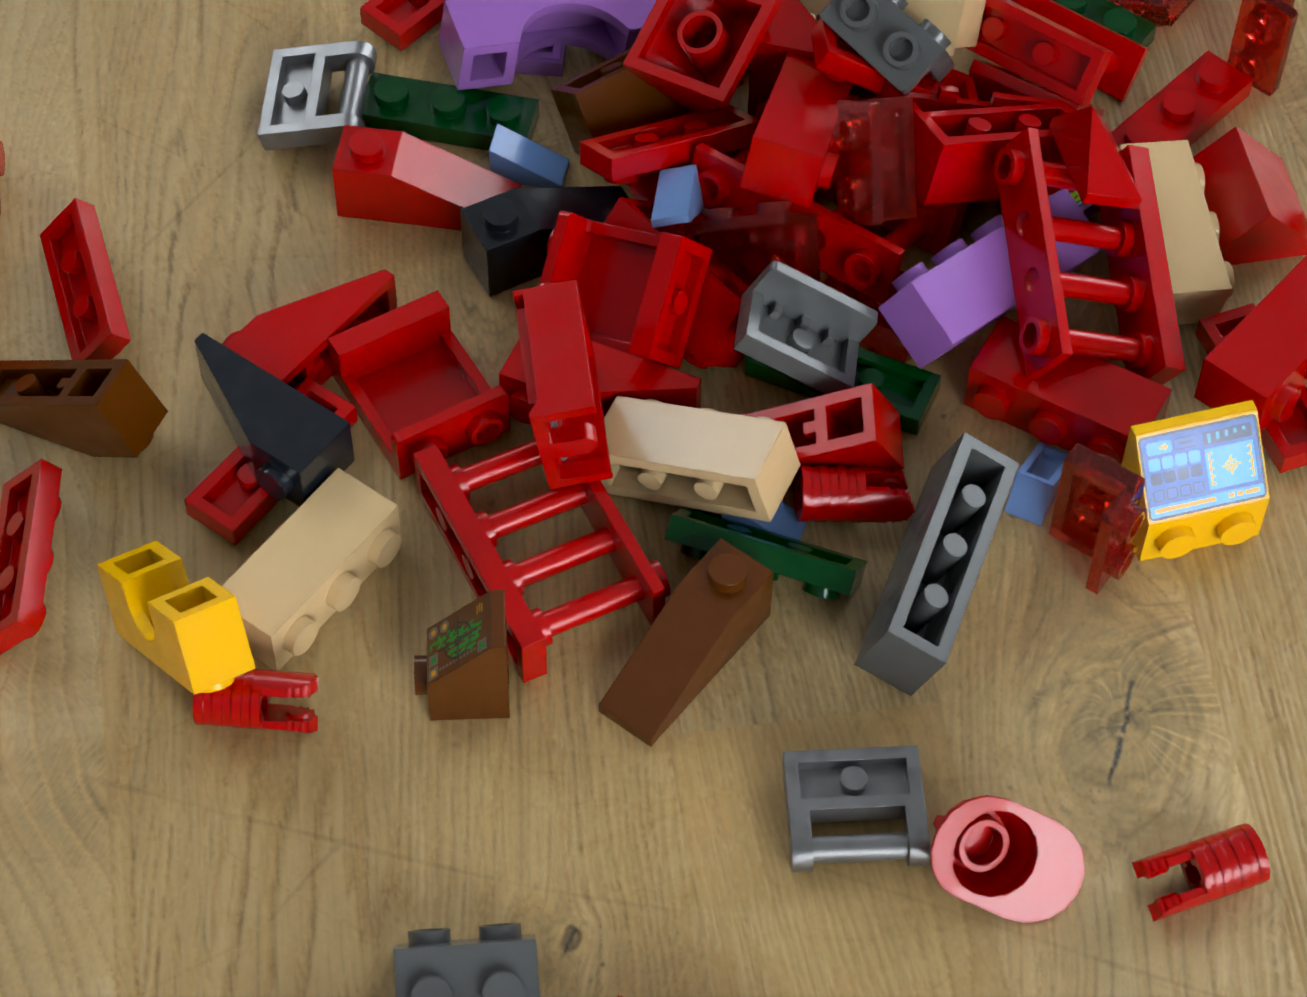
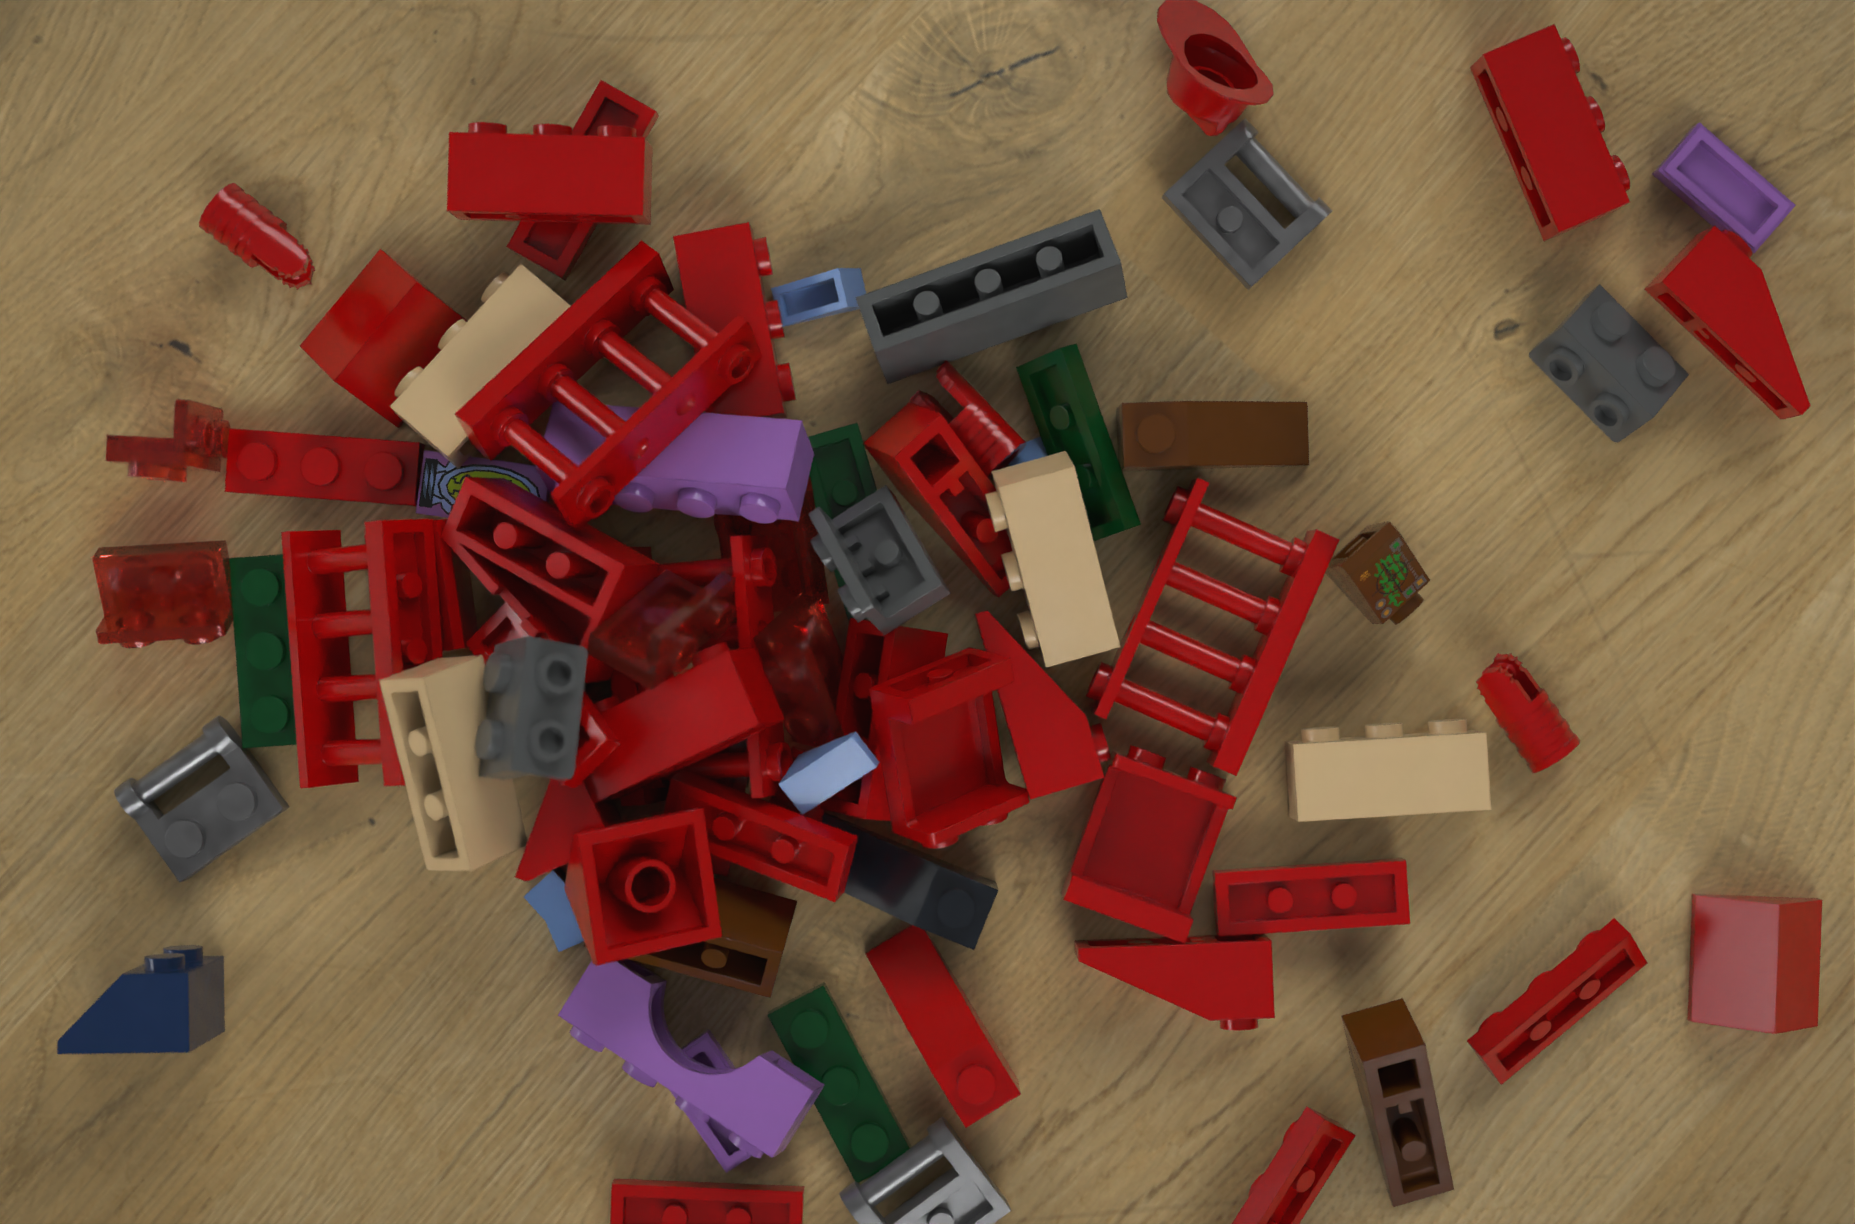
camera: 130 degrees left, 35 degrees up
(177, 625) = (1535, 821): yellow arch -> none
(280, 431) = (1310, 897): black slope -> none
(525, 160) = (838, 968): medium blue piece -> none
(562, 384) = (1113, 687): red window -> none
(1094, 159) = (517, 440): red slope -> none
(1098, 512) = (838, 213): clear red bracket -> none
(1201, 479) = (754, 154): slope -> none

